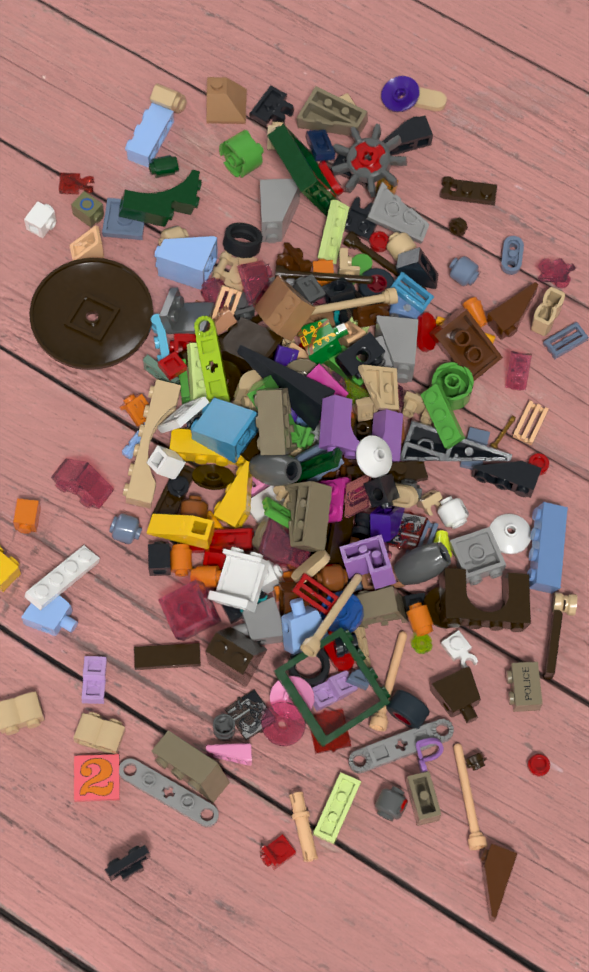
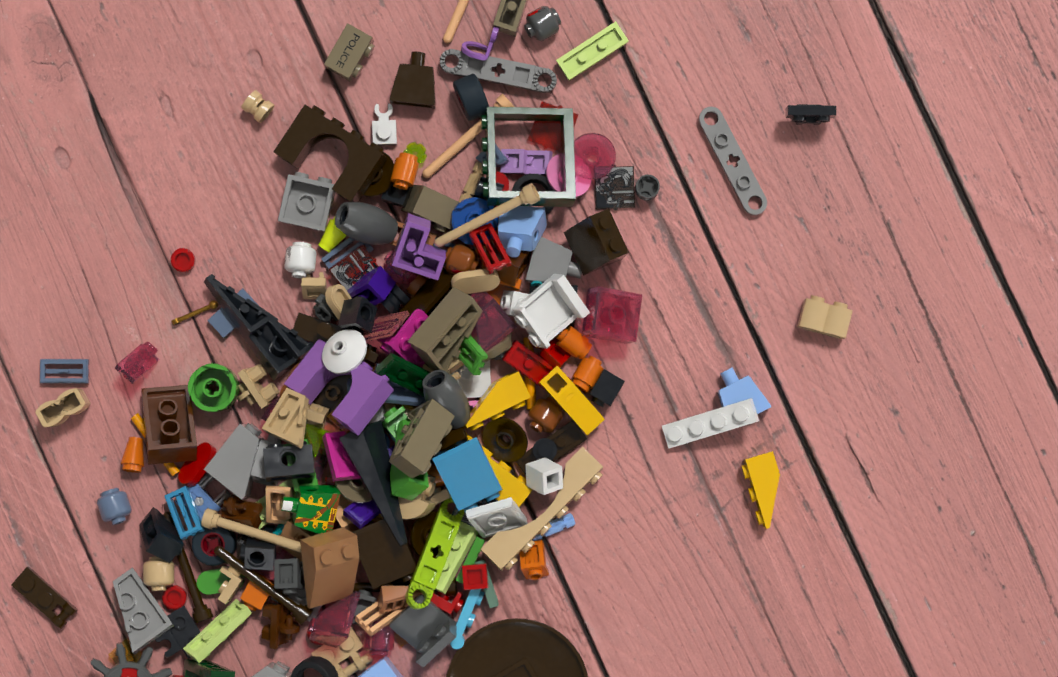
camera: 145 degrees left, 20 degrees up
(26, 515) = (706, 511): orange brick -> none
(82, 481) = (635, 510): clear pink brick -> none
(94, 679) = (737, 309): lavender slope -> none
(96, 778) = (788, 214): tile -> none
(99, 733) = (762, 252): tan brick -> none
(125, 528) = (620, 438): sand blue head -> none
(167, 656) = (656, 289): dark brown tile -> none
(190, 766) = (701, 169): dark tan wedge -> none
(231, 752) = (652, 157): bright pink slope -> none
(277, 852) = (670, 46): red bracket -> none
(304, 831) = (631, 58): light nougat pin -> none
(442, 416) = (247, 356): bright green plate -> none
(458, 226) = (85, 561): dark brown plate -> none
(476, 761) = (440, 15): dark brown plate -> none
(508, 316) = (101, 429): reddish brown slope -> none
(508, 542) = (264, 220): white dish -> none
(511, 476) = (212, 256): black slope -> none
(512, 257) = (52, 494): sand blue plate -> none
(537, 408) = (178, 295): light nougat tile -> none
(547, 547) = (236, 168): medium blue brick -> none
(553, 644) = (296, 74): dark brown tile -> none
(555, 272) = (24, 446): clear pink hips -> none

